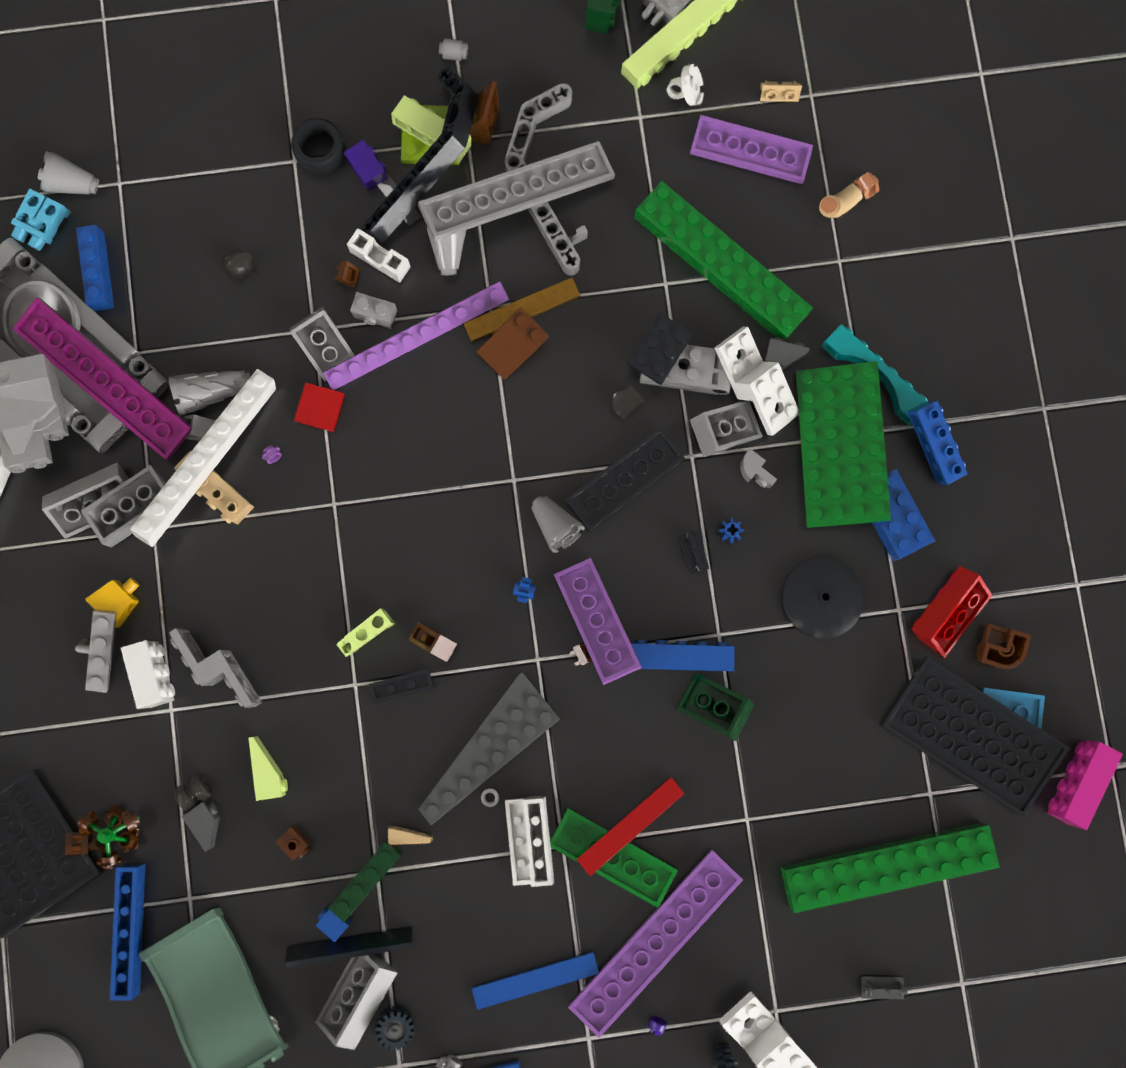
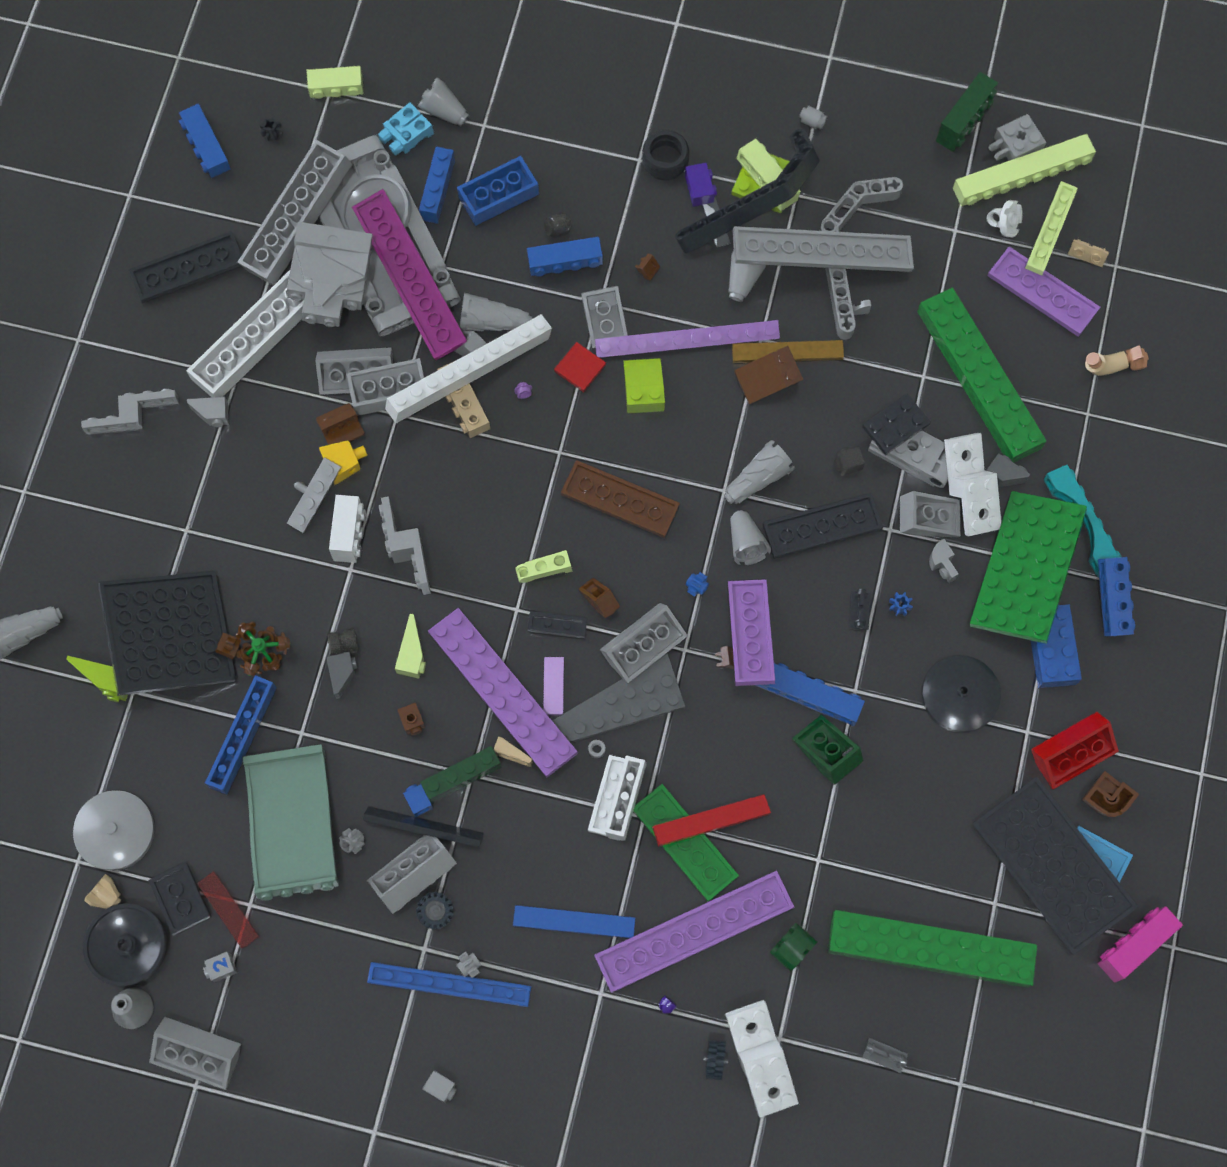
camera: 25 degrees right, 10 degrees down
(98, 565) = (340, 425): none -> reddish brown bracket
(160, 250) = (498, 190): none -> blue brick
(257, 296) = (564, 256): none -> blue brick
(283, 992) = (351, 840): none -> light grey gear
(371, 252) = (688, 270): white arch -> none
(373, 310) = (659, 304): light grey brick -> none
(374, 779) = (503, 692): none -> medium lavender plate
(391, 401) = (644, 385): none -> lime slope
(413, 530) = (620, 498): none -> reddish brown plate
(422, 750) = (553, 685): none -> lavender tile
(485, 114) = (819, 179): reddish brown slope -> none
(494, 672) = (644, 642): none -> light grey slope
(544, 448) = (764, 469): none -> light grey cone
(735, 79) = (1051, 228): none -> yellowish green plate
(758, 922) = (793, 947): none -> dark green brick

